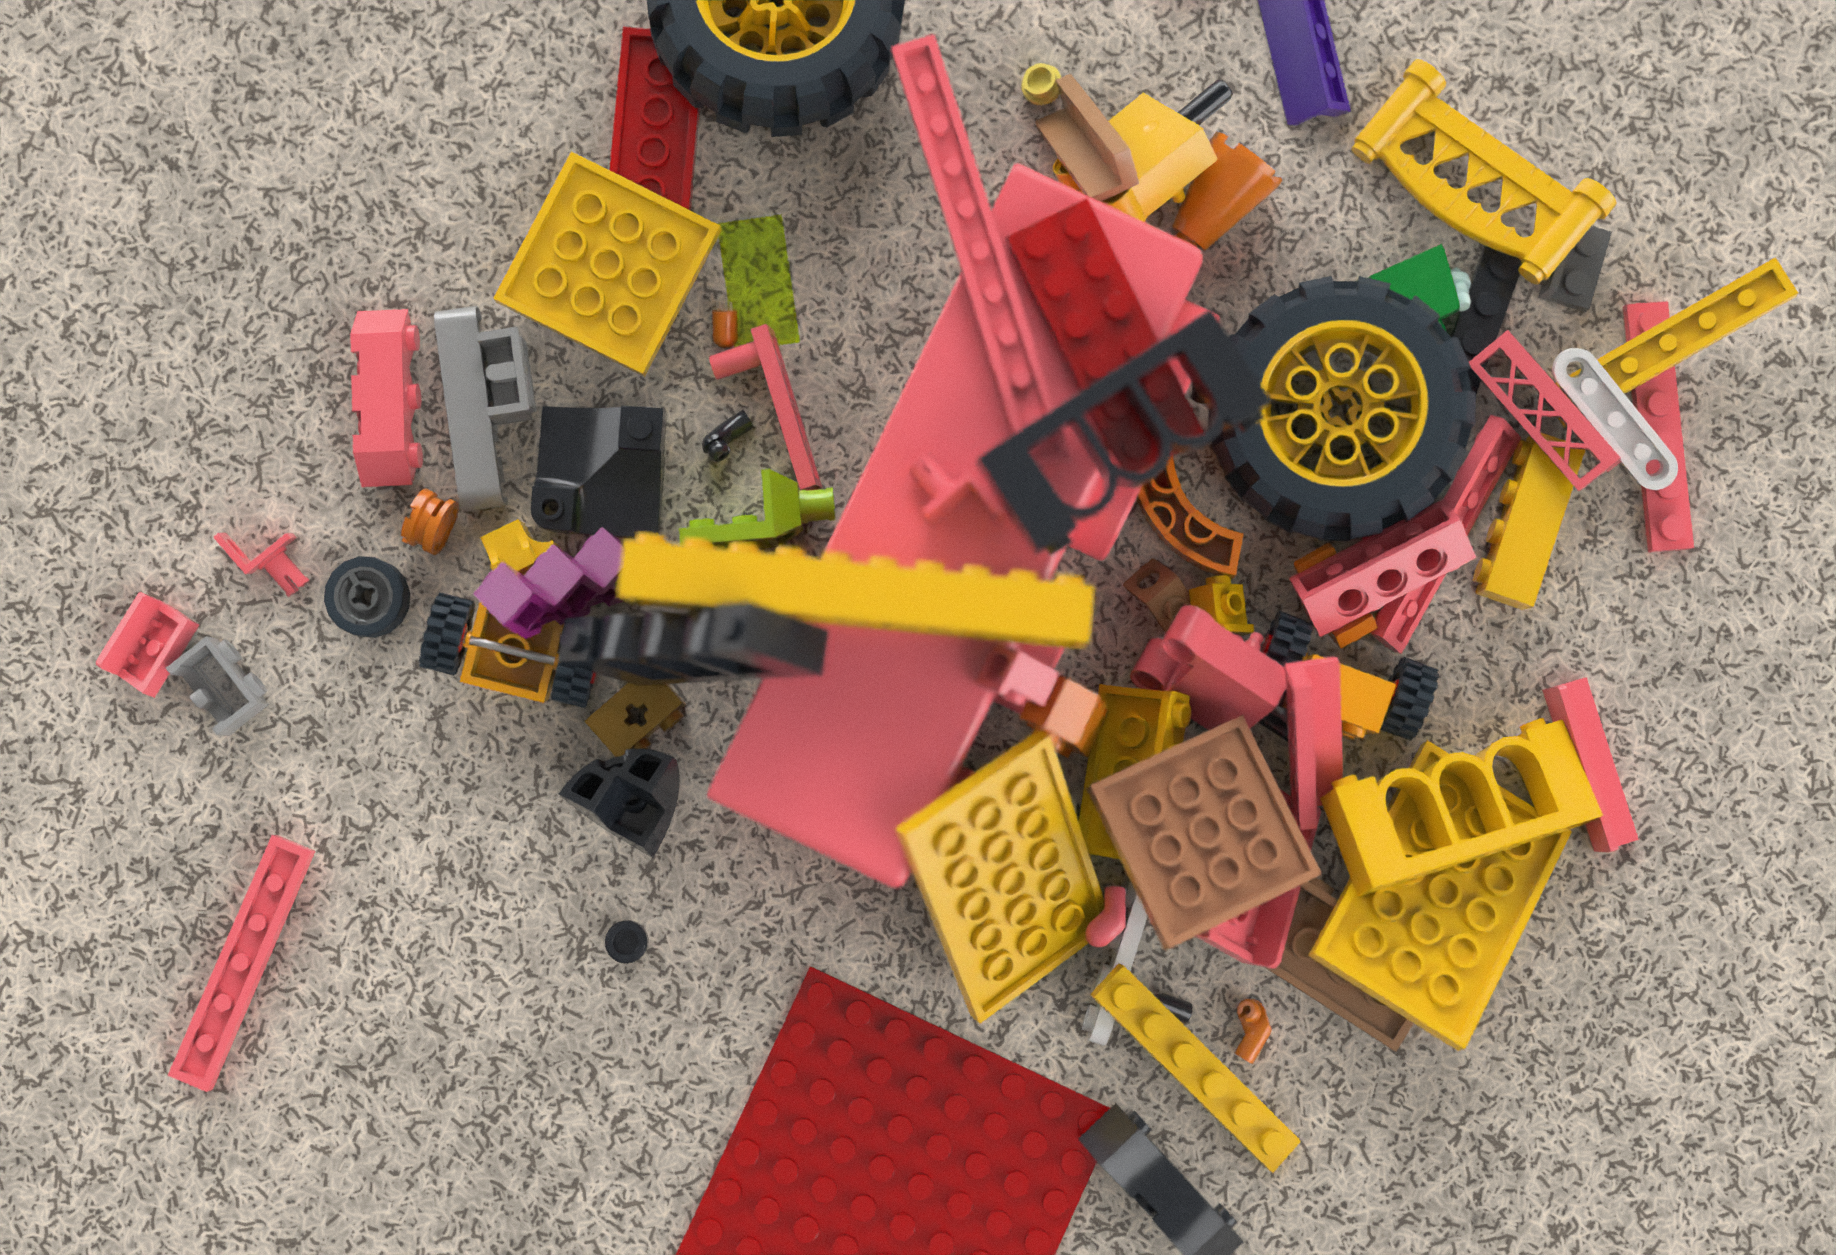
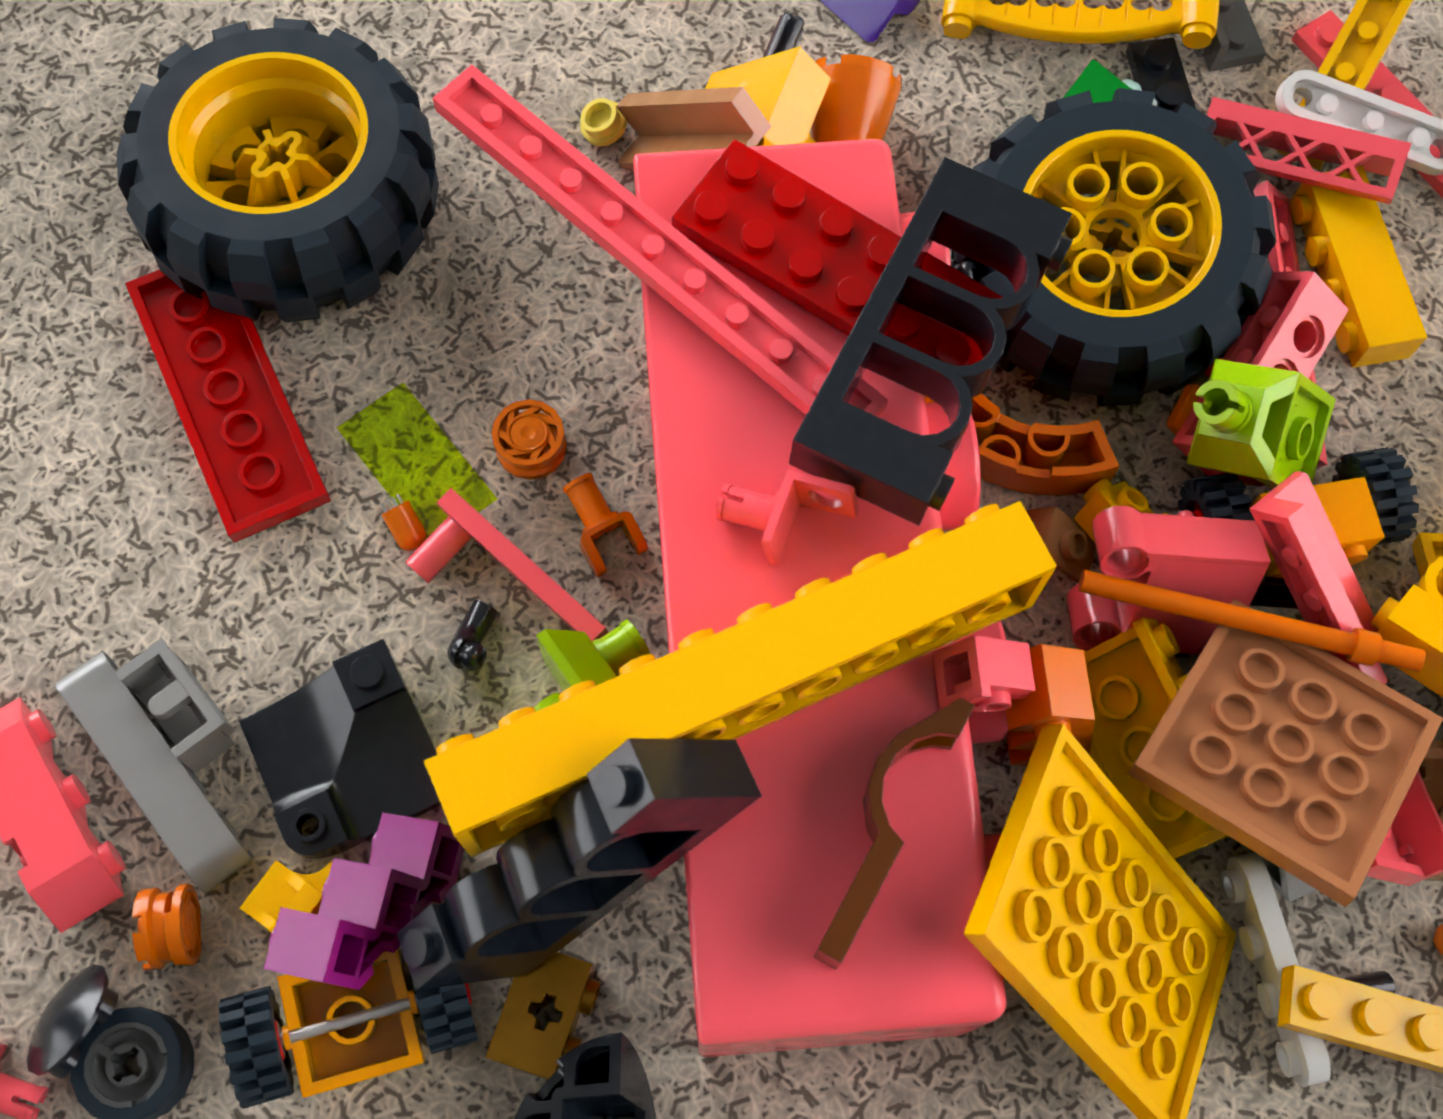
camera: 30 degrees left, 15 degrees down
(341, 547) = (68, 1020): none -> black dish
(607, 263) = (233, 524): yellow plate -> none
(844, 312) = (529, 441): none -> orange wheel
(858, 399) = (599, 520): none -> orange piece
(879, 751) = (933, 732): none -> reddish brown piece
(1110, 920) = (1239, 926): coral arm -> none
(1300, 796) = (1358, 646): none -> orange bar
(1346, 609) = (1260, 422): none -> lime plate

